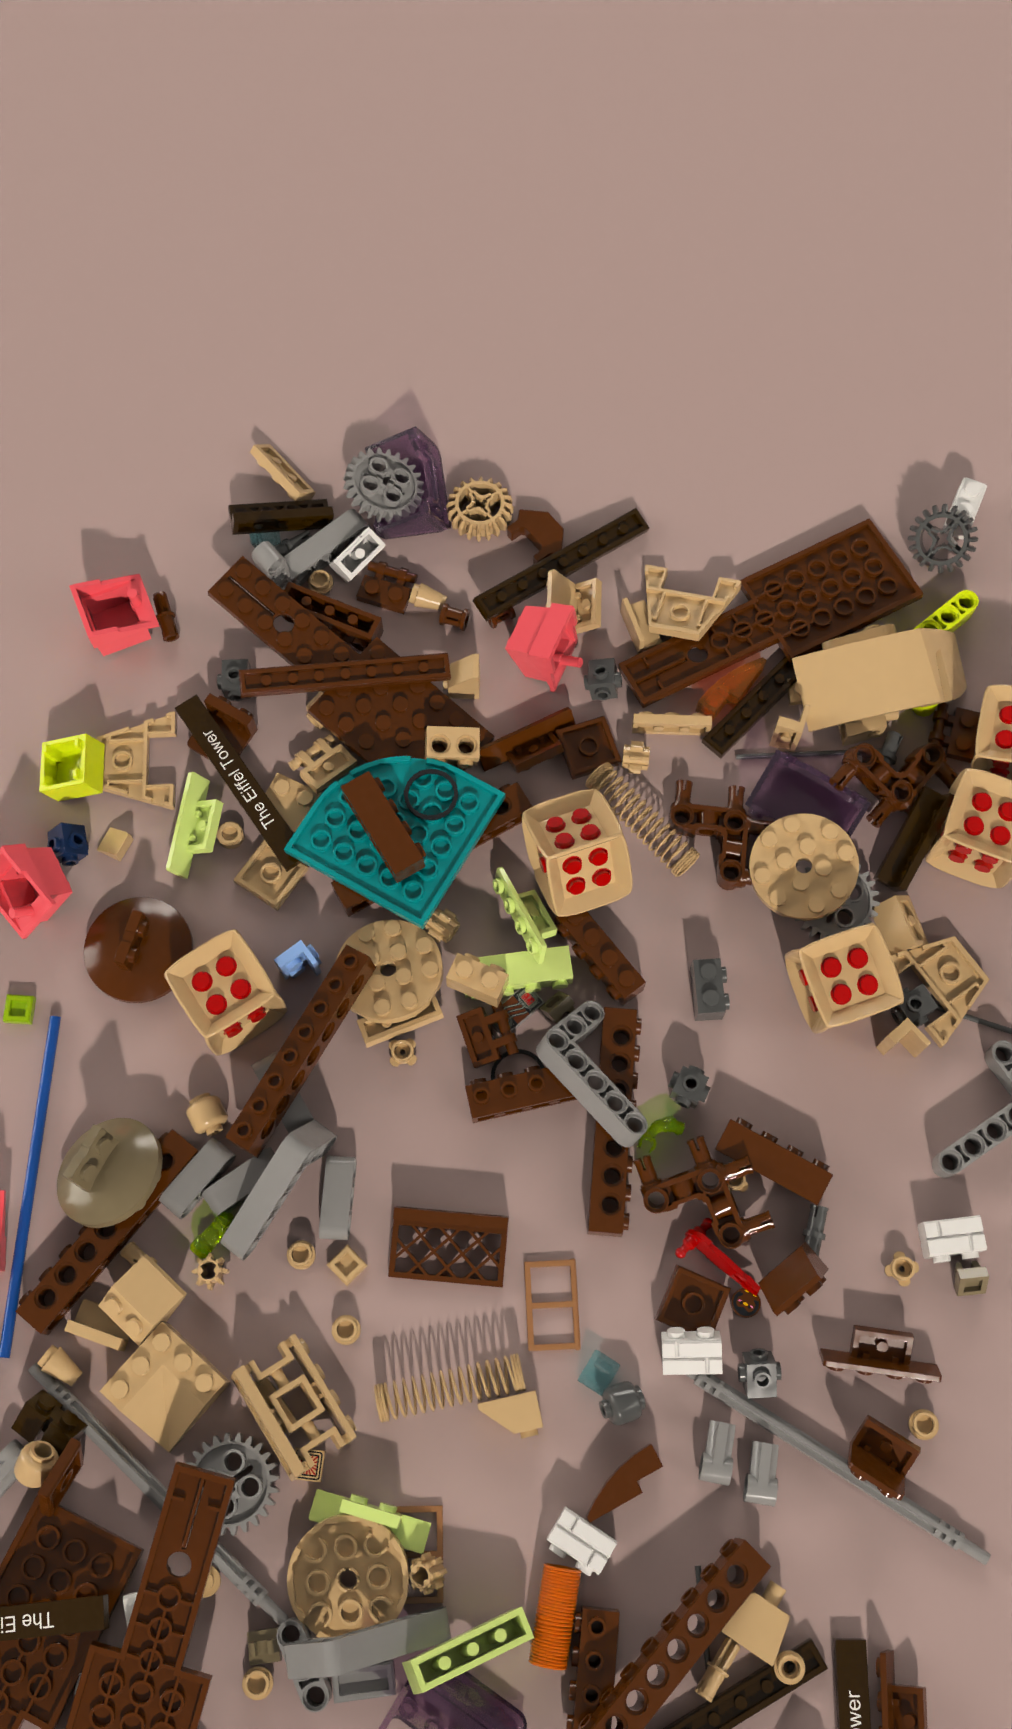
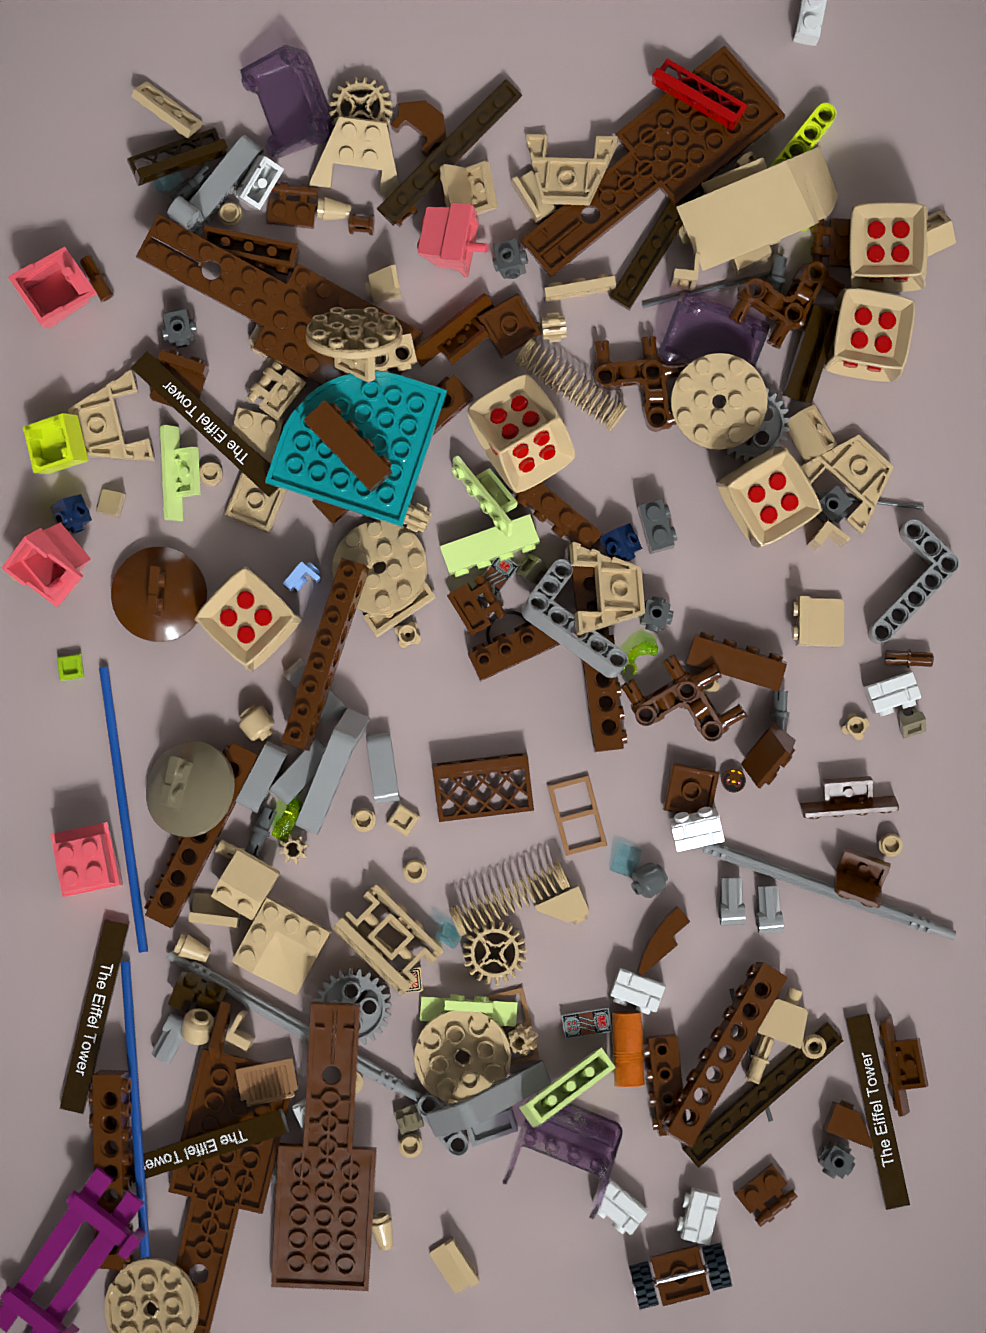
camera: 15 degrees left, 15 degrees up
(81, 1486) = (239, 1037): none -> tan panel
(103, 1556) = (267, 1082): none -> medium nougat window
(178, 1241) = (260, 831): none -> dark grey pin
(344, 675) = (278, 308): reddish brown tile -> none
(366, 1417) = (448, 934): none -> clear light blue slope
(383, 485) = (269, 88): light grey gear -> none
(394, 1465) = (478, 966): none -> tan gear
(416, 718) = (354, 338): none -> tan bracket
(425, 772) = (383, 426): black piece -> none
(467, 537) = (361, 145): none -> tan wing
(477, 979) = (459, 563): tan brick -> none
(510, 1570) = (586, 1023): none -> tile
(651, 1045) = (617, 589): none -> tan wing
(665, 999) = (621, 543): none -> dark blue brick
(697, 1238) = (685, 737): red piece -> none
(730, 688) = (625, 243): clear orange slope -> none
(759, 1373) = (754, 834): dark grey brick -> none
(831, 560) = (696, 99): none -> red fence
(876, 1136) = (818, 622): none -> tan bracket
(952, 546) = (802, 60): dark grey gear -> none
(977, 1201) = (909, 658): none -> reddish brown axle

